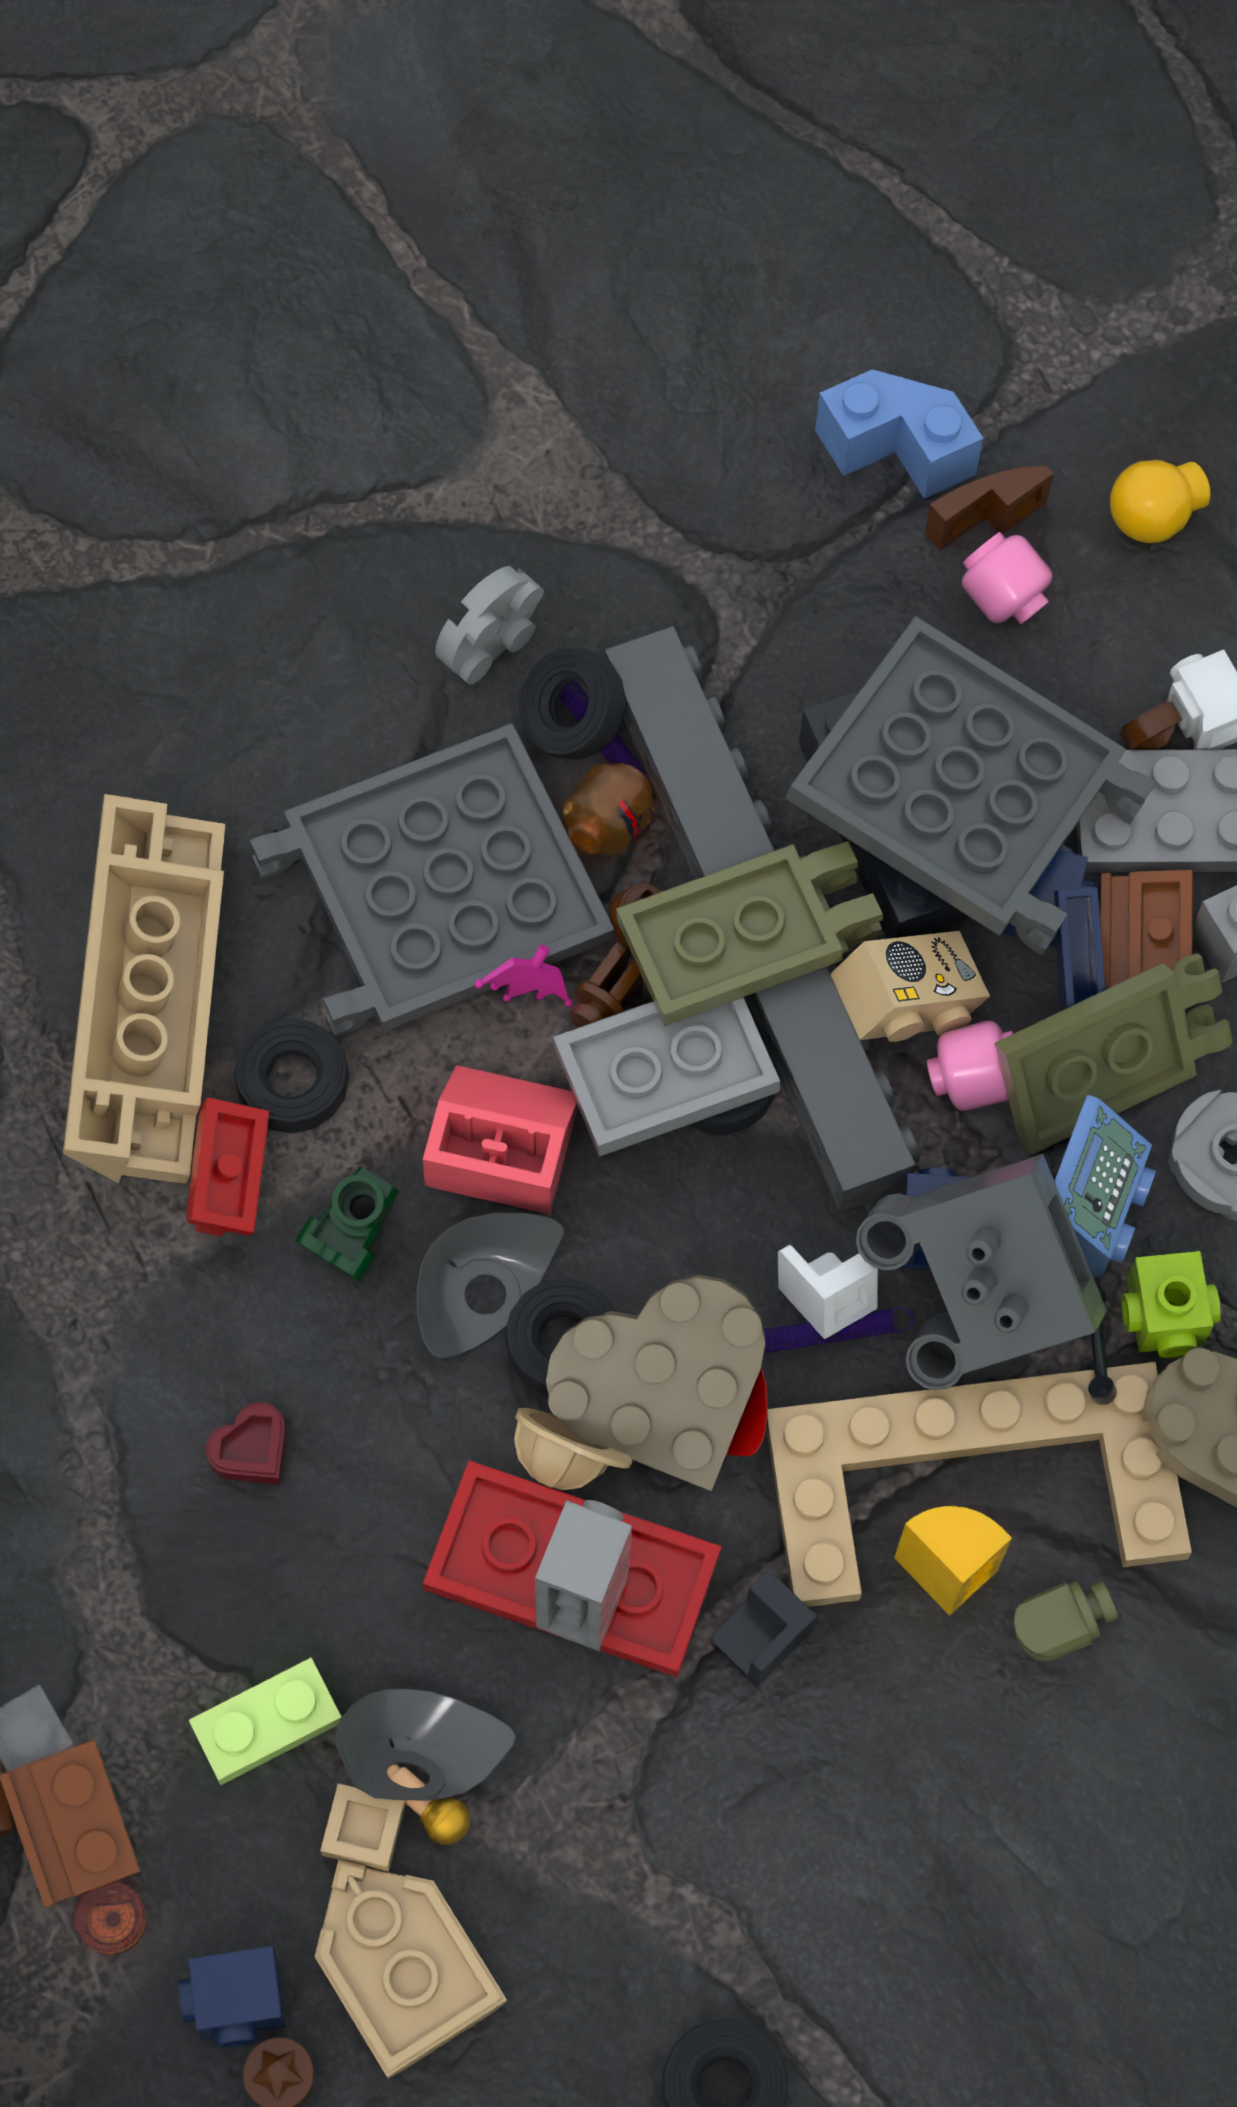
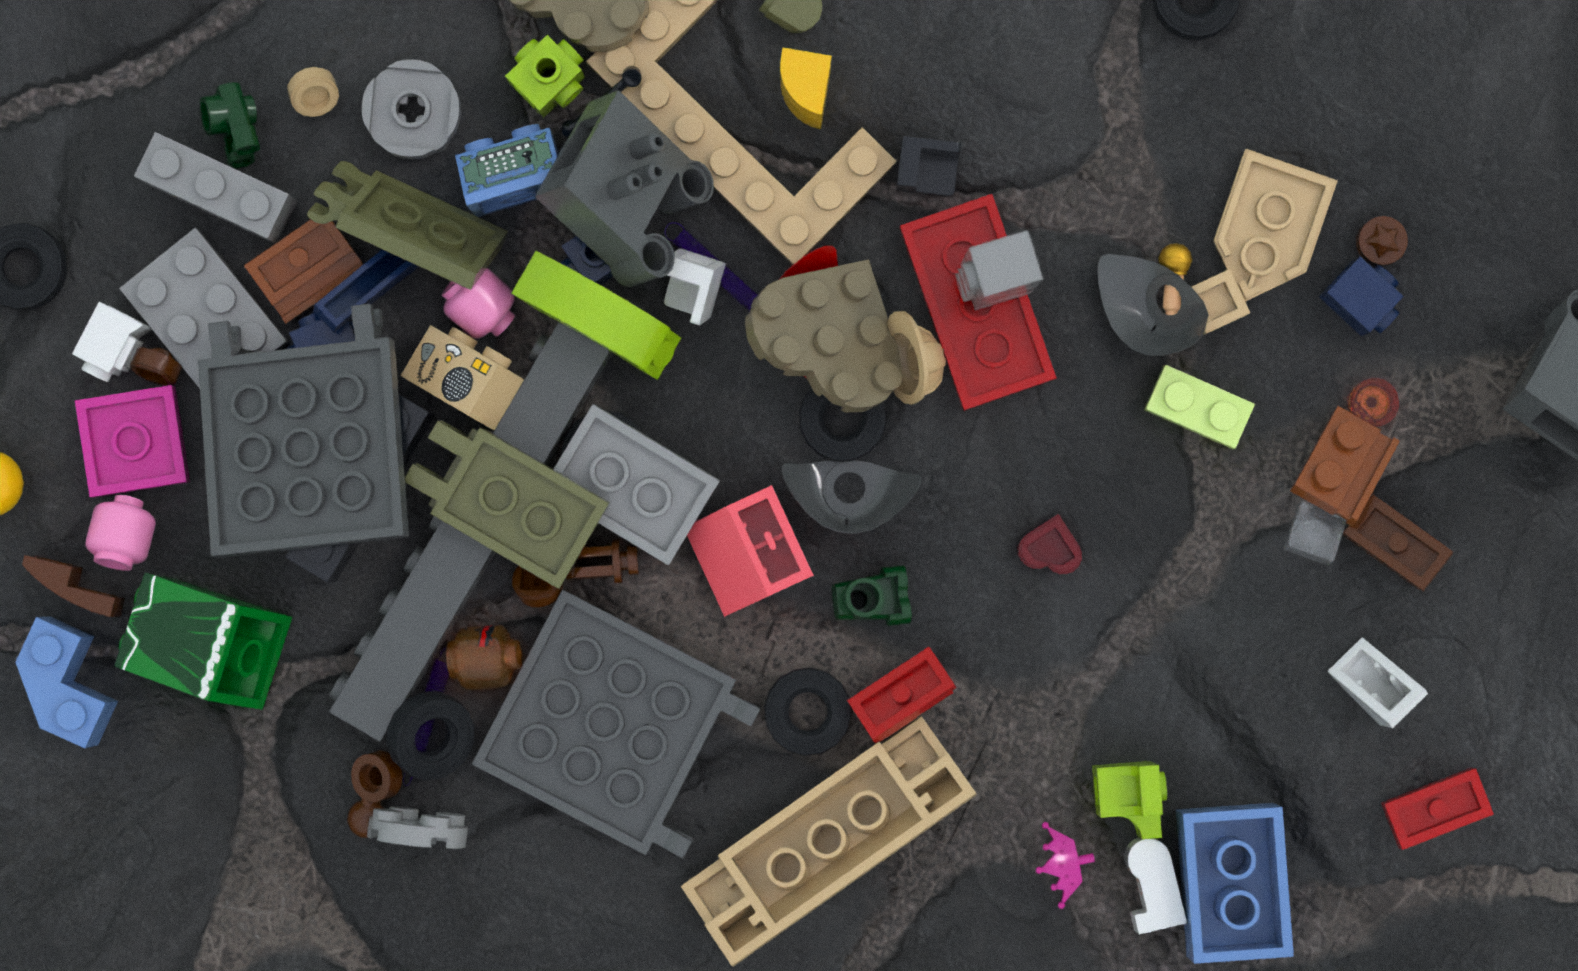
camera: 125 degrees left, 20 degrees up
(526, 976) = (635, 619): dark pink piece -> none
(566, 625) = (374, 780): none -> reddish brown plate
(835, 573) = (202, 642): none -> slope
(864, 1147) = (597, 314): none -> lime arch
(1092, 654) = (132, 441): none -> dark pink plate

